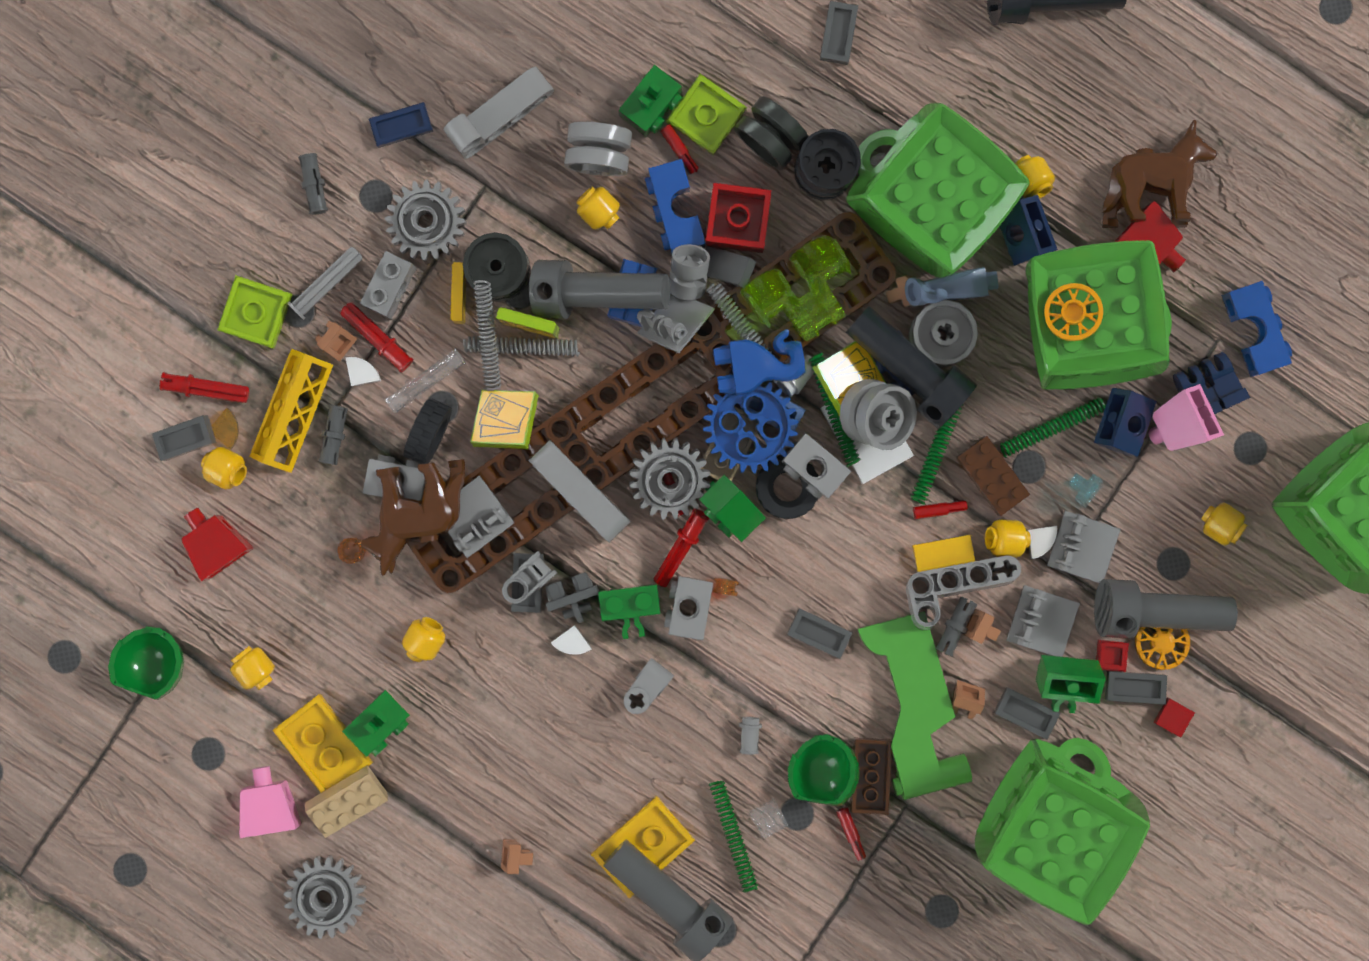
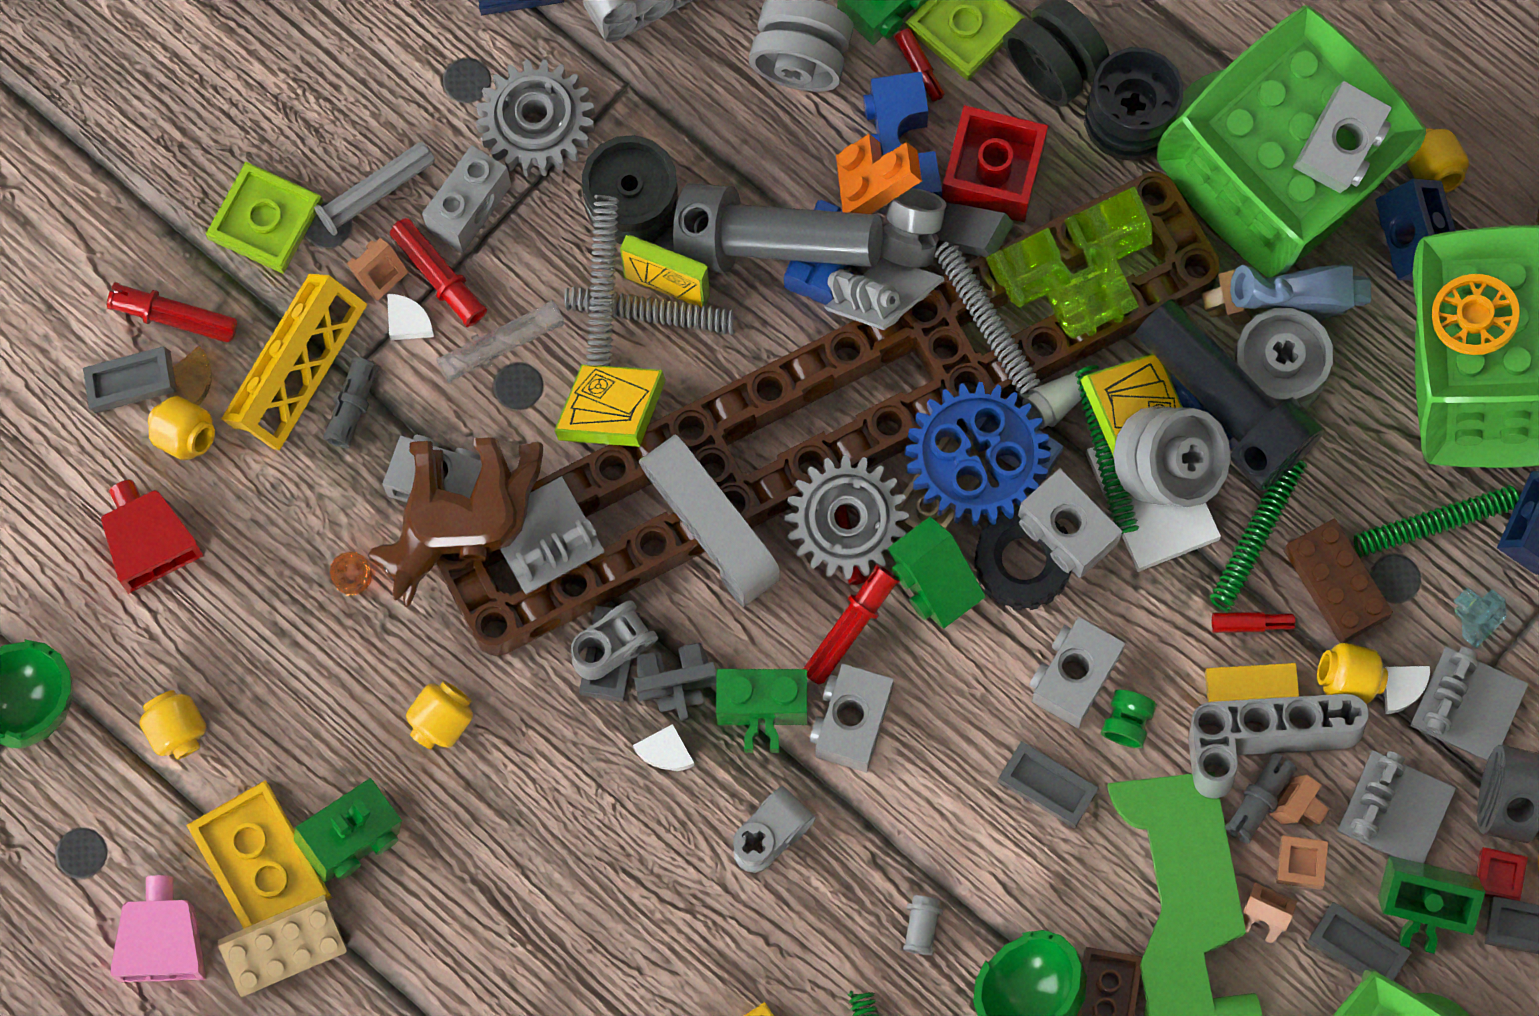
camera: 10 degrees right, 15 degrees down
(313, 183) = (379, 49): dark grey pin -> none
(427, 431) = (494, 403): black tyre -> none
(458, 293) = (568, 223): yellow tile -> none
(598, 208) = (790, 129): yellow head -> none
(657, 245) = (874, 180): none -> orange plate
(725, 586) = (911, 694): clear orange bush -> none
(756, 365) = (996, 360): blue hips -> none
(844, 548) = (1069, 697): none -> light grey brick
(867, 579) = (1128, 718): none -> green wheel
(960, 210) = (1323, 156): none -> light grey brick
(986, 667) = (1302, 862): none -> nougat tile

